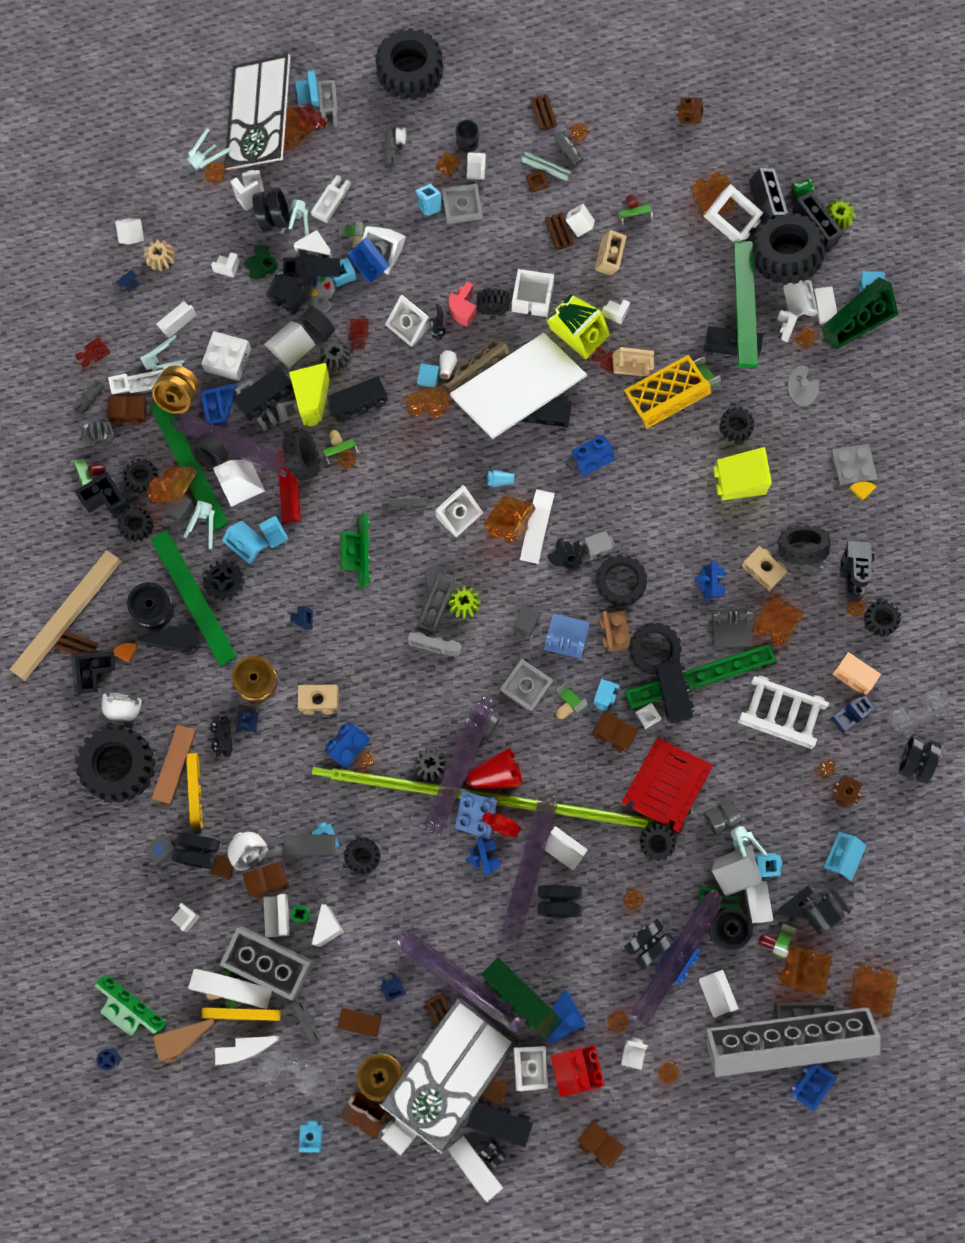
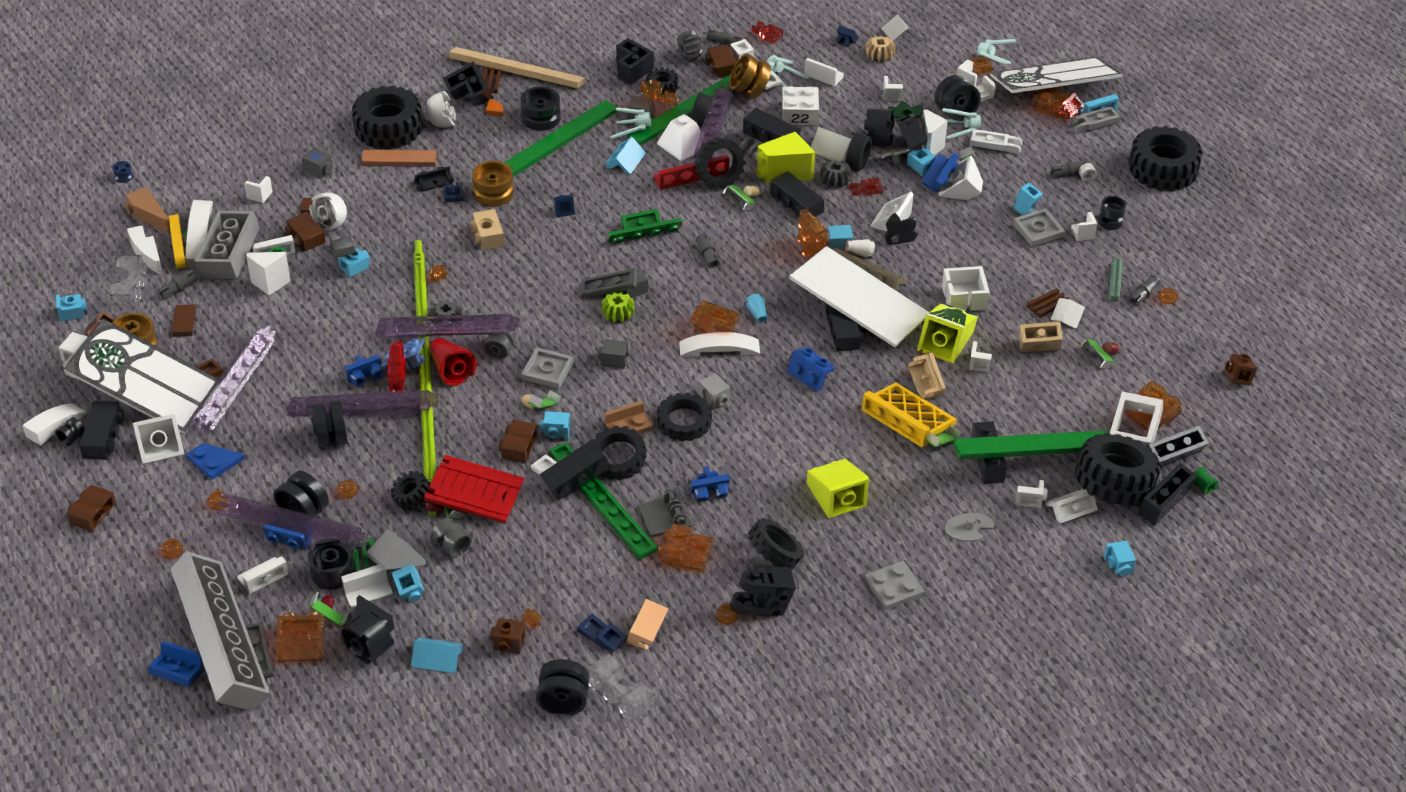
camera: 70 degrees right, 30 degrees down
(86, 472) = (656, 46): bright green piece -> none
(126, 517) = (620, 93): black tyre -> none
(126, 1010) = (170, 173): green bracket -> none
(179, 639) = (517, 133): black slope -> none
(194, 791) = (377, 169): yellow beam -> none
(195, 854) = (316, 177): black wheel -> none
(218, 403) = (740, 111): blue wing -> none
(223, 571) = (582, 149): black gear -> none
(273, 531) = (644, 171): medium azure panel -> none
(346, 459) = (734, 203): clear orange plate -> none
(346, 744) = (452, 258): blue bracket -> none
(350, 852) = (347, 295): black tyre -> none
(393, 988) = (220, 332): dark blue tile -> none
(434, 644) = (568, 297): light grey hinge -> none
(448, 164) = (1076, 209): clear orange plate -> none
(458, 511) = (710, 282): white slope -> none
(460, 308) = (927, 244): coral brick -> none
(493, 301) = (939, 259): black tyre -> none
(496, 1091) = (129, 419): clear orange plate -> none
(522, 998) = (224, 416): dark green wedge -> none
(537, 181) = (1094, 277): reddish brown tile -> none
(539, 99) = (1172, 264): reddish brown tile -> none
(565, 848) = (389, 427): white panel -> none
(566, 550) = (694, 373): black plate -> none
(566, 636) = (609, 388): medium blue hinge -> none
(577, 1070) = (163, 477): red slope -> none
(634, 1053) = (188, 518): white bracket -> none
(737, 414) = (898, 466): black tyre -> none
(741, 840) = (434, 557): light aqua plant -> none
(770, 578) = (737, 524): tan brick -> none
(786, 731) = (562, 576): white fence -> none
(805, 337) = (1027, 517): clear orange plate -> none
(825, 303) = (1075, 527): white tile -> none
(844, 209) = (1189, 516): lime gear -> none
(862, 314) = (1077, 552): dark green wedge -> none
(862, 489) = (868, 597): yellow tile -> none
(873, 990) = (292, 703): clear orange plate -> none
(884, 607) = (720, 647): black tyre -> none

